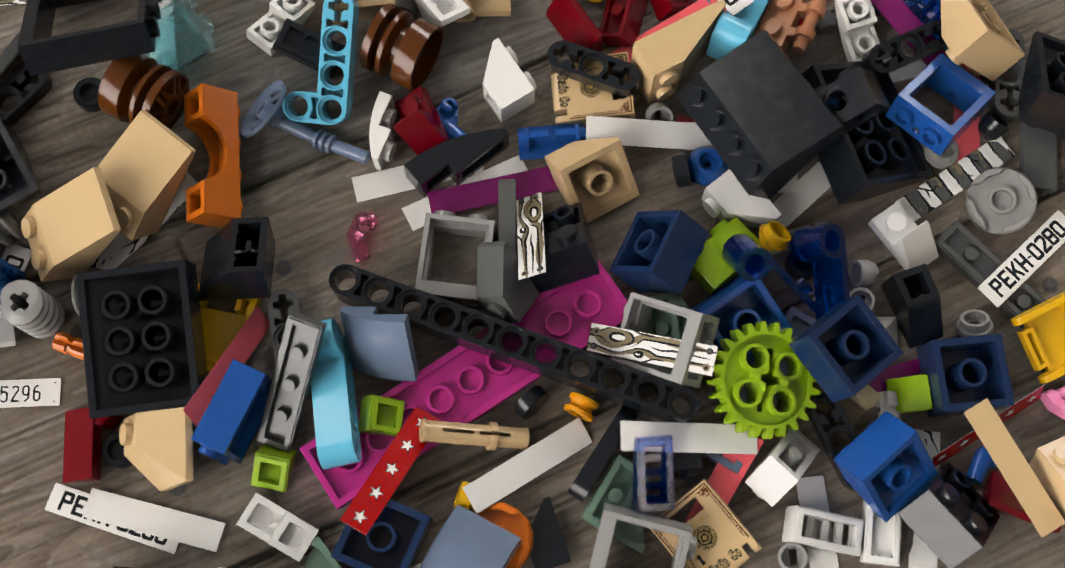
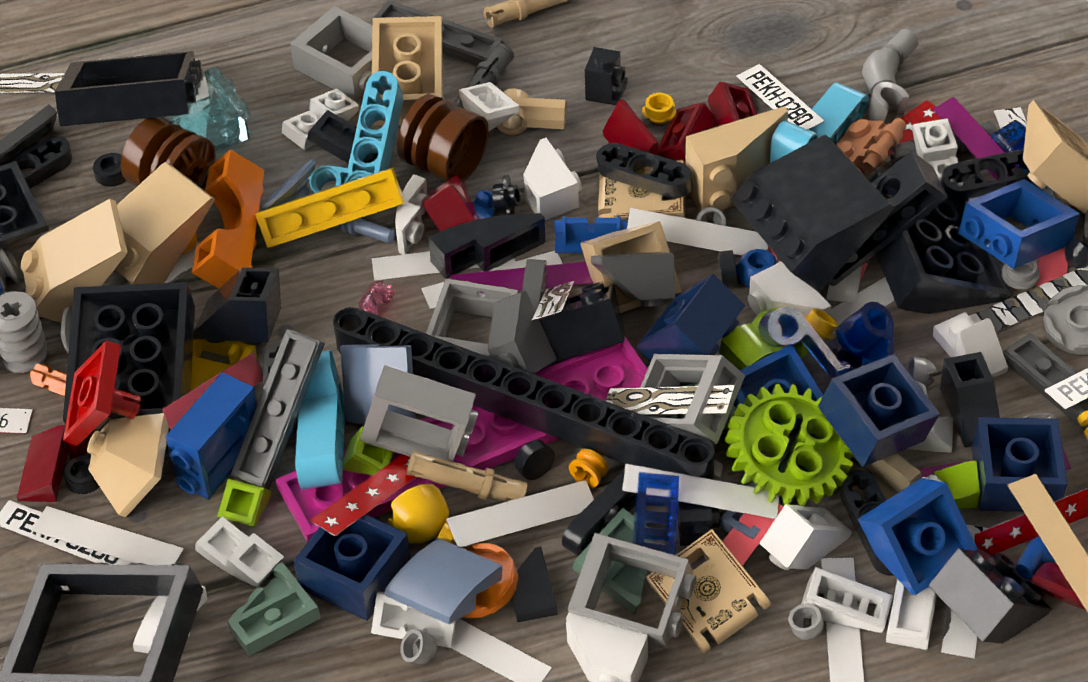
camera: 10 degrees right, 25 degrees down
(116, 406) = (95, 395): none -> red tile
(306, 137) = (330, 207): none -> yellow plate
(426, 393) = (424, 397): none -> light grey window
(438, 482) = (420, 513): none -> yellow hair
(467, 103) = (506, 196): none -> black plate
(605, 193) = (640, 275): none -> dark grey slope

